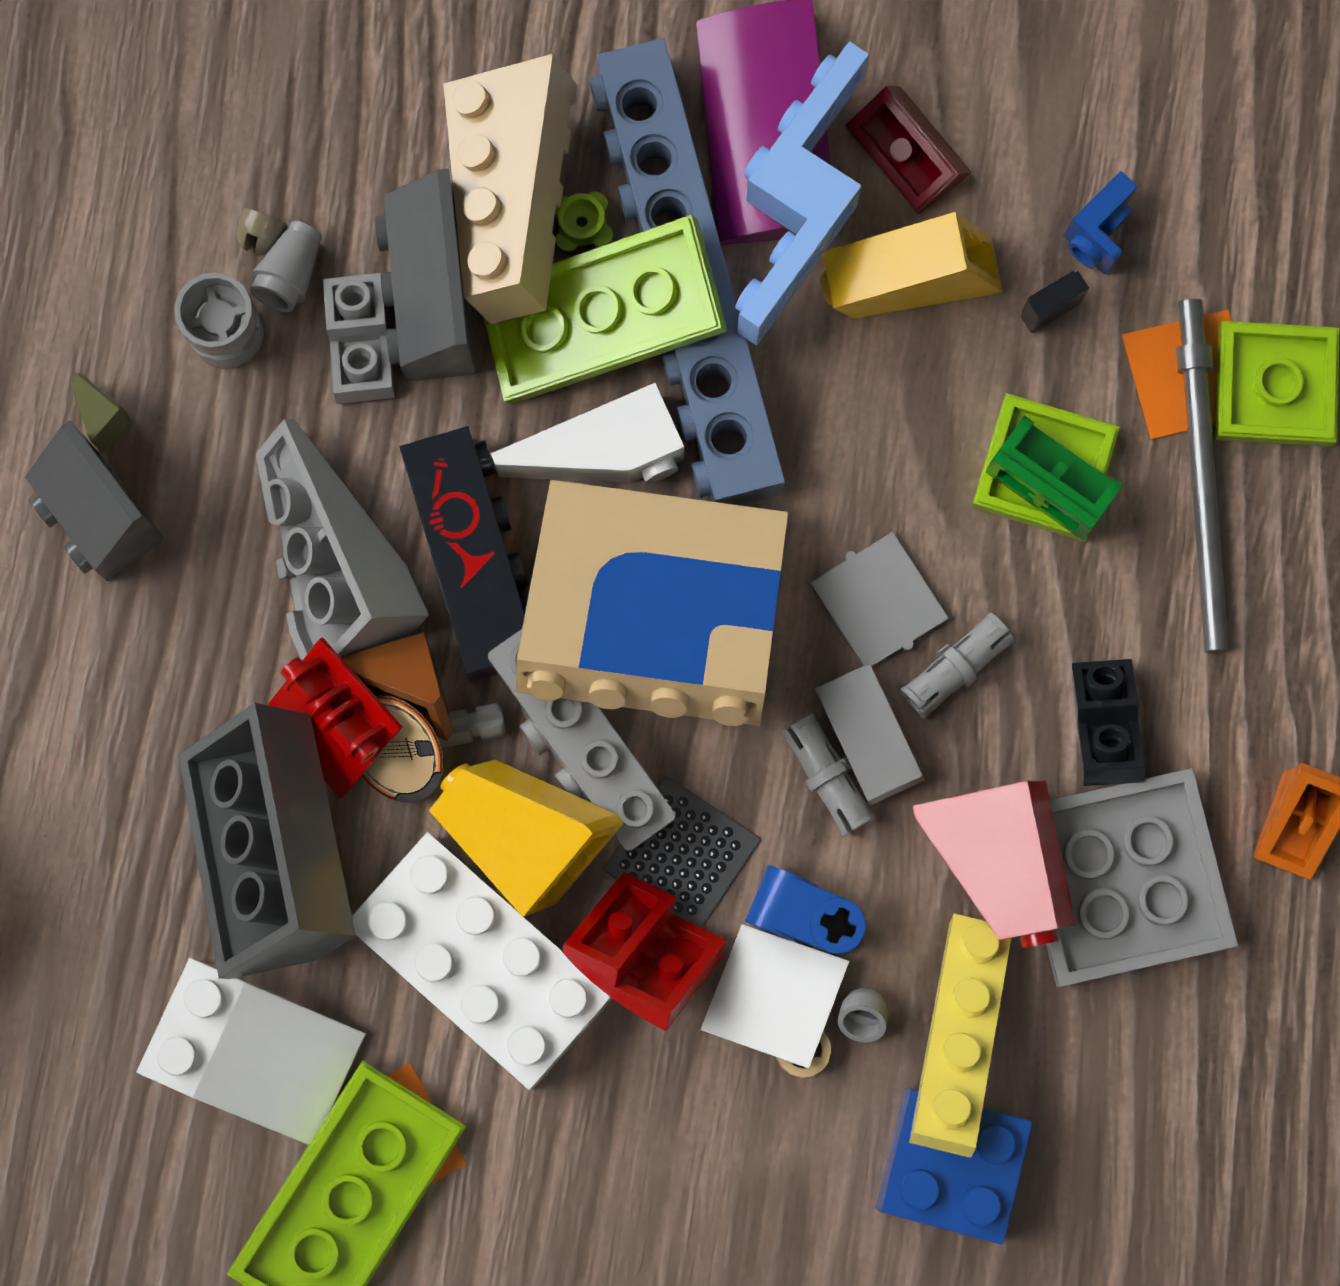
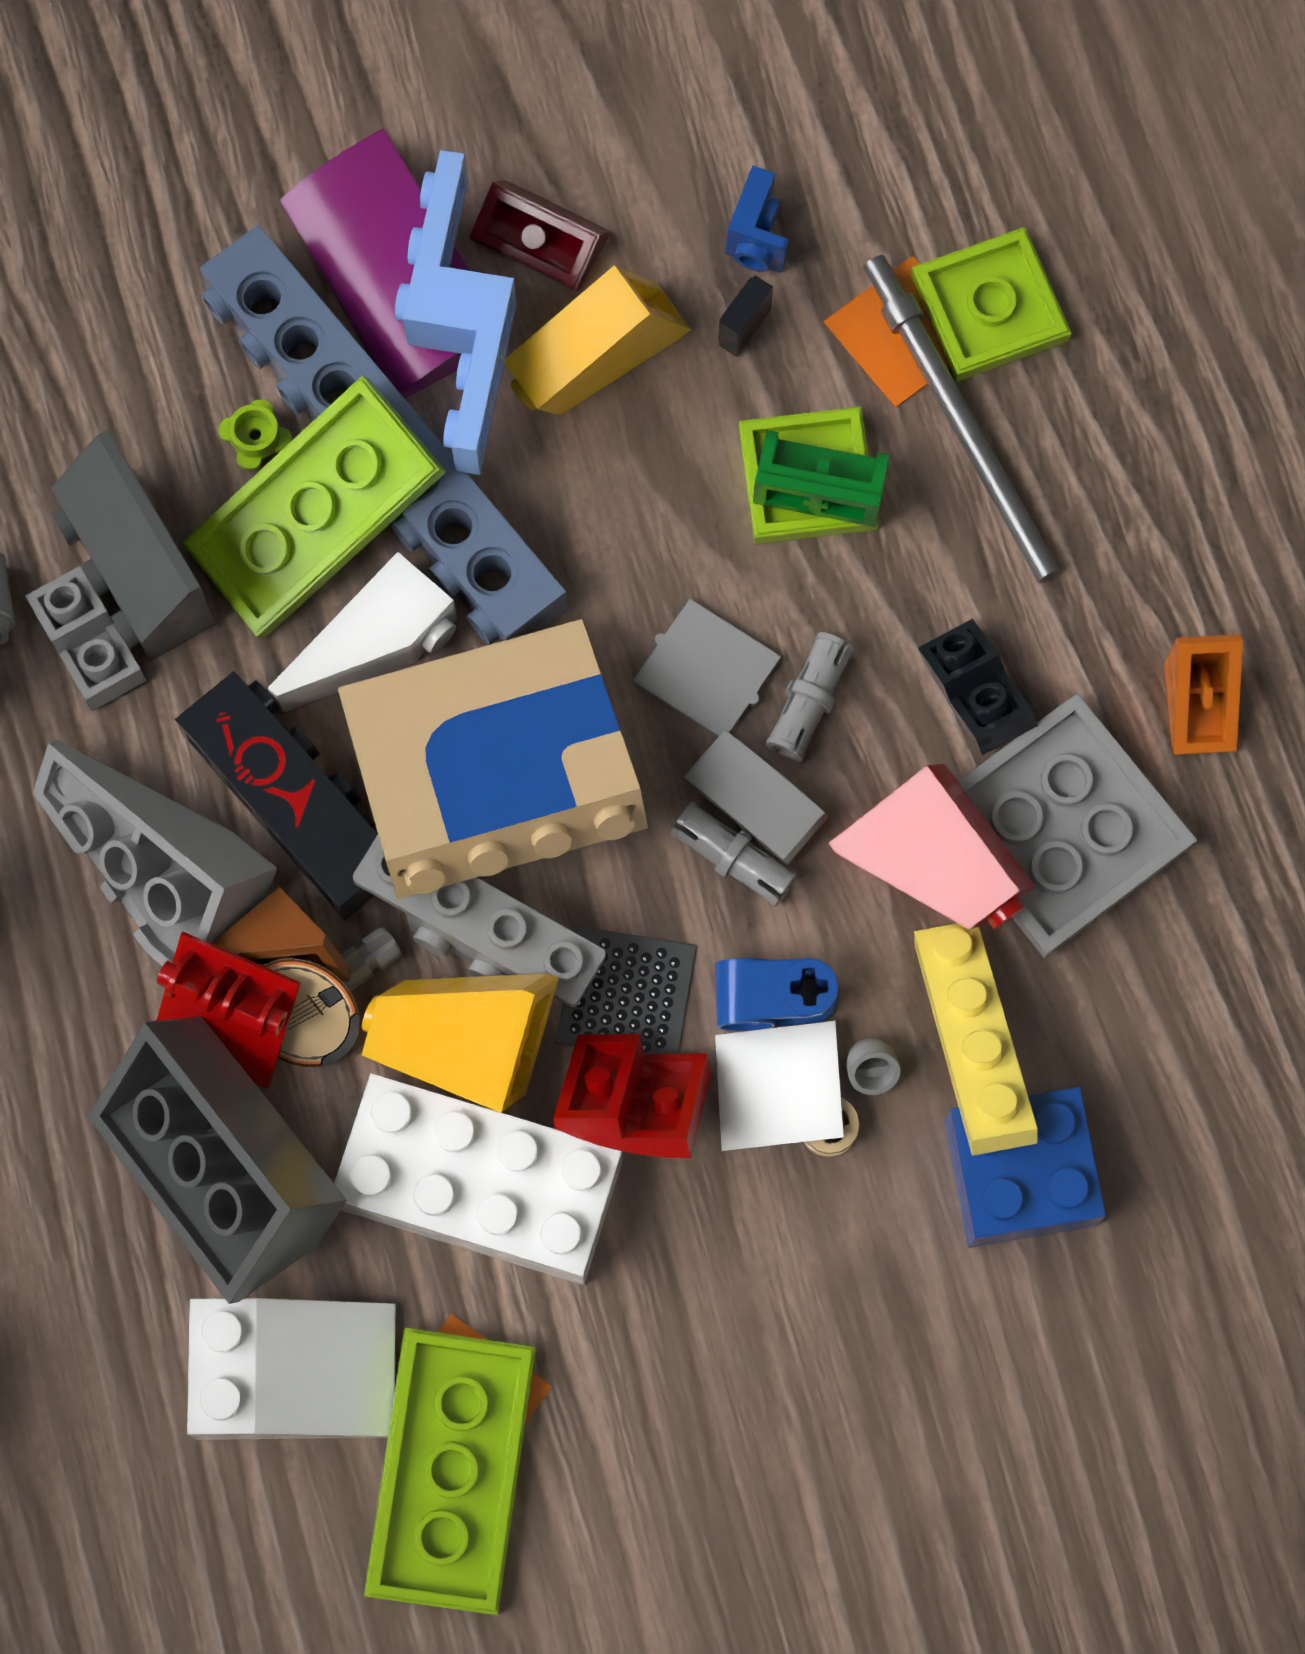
camera: 25 degrees left, 5 degrees down
(506, 175) = (162, 411): tan wedge -> none

